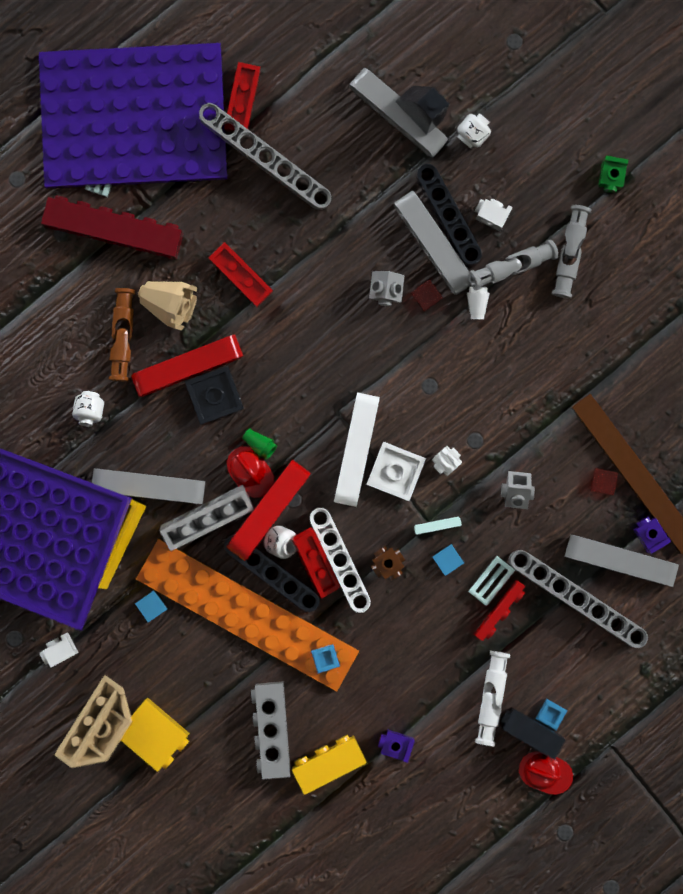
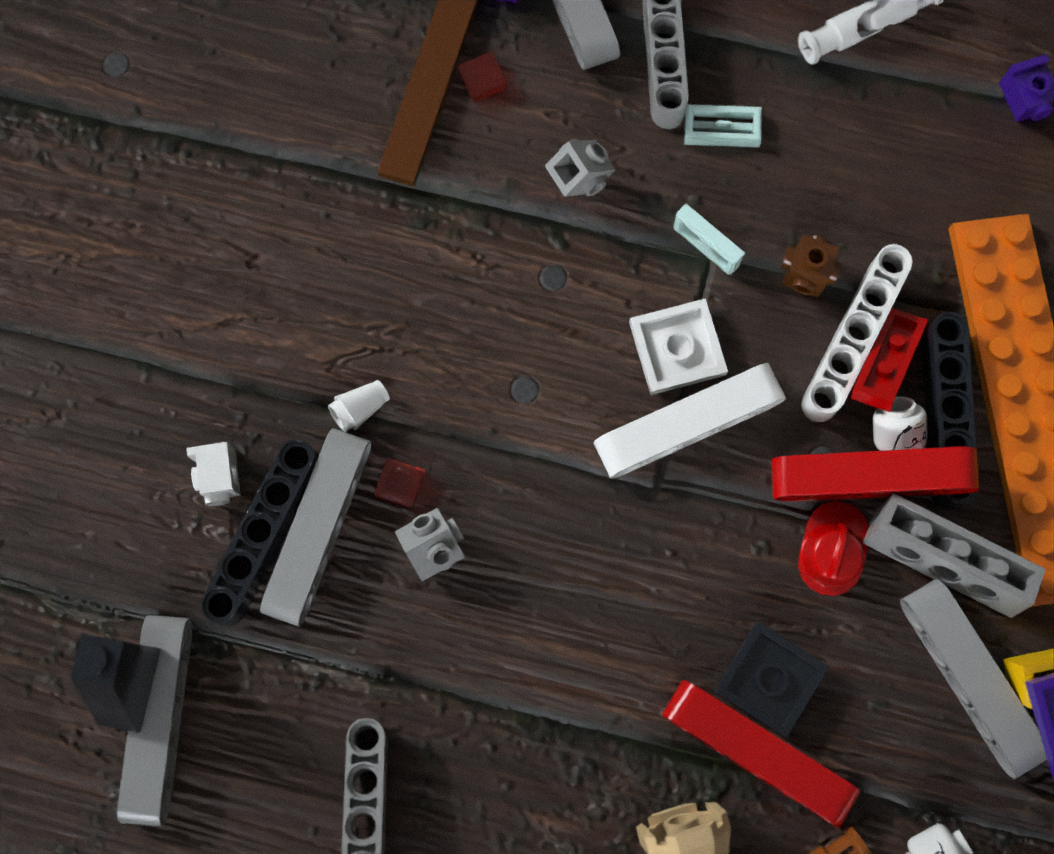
camera: 120 degrees left, 10 degrees down
(240, 274) = (566, 776): red plate -> none
(260, 444) = (787, 561): green cone -> none
(325, 658) = (1003, 254): dark azure tile -> none
(446, 460) = (611, 288): white gear -> none
(448, 559) = (740, 197): dark azure tile -> none
(474, 130) = (108, 587): white head -> none
(499, 270) = (288, 398): light grey piece -> none
(500, 611) = (755, 84): red plate -> none
(575, 236) = (173, 338): light grey piece -> none
(606, 180) = (51, 359): green brick -> none

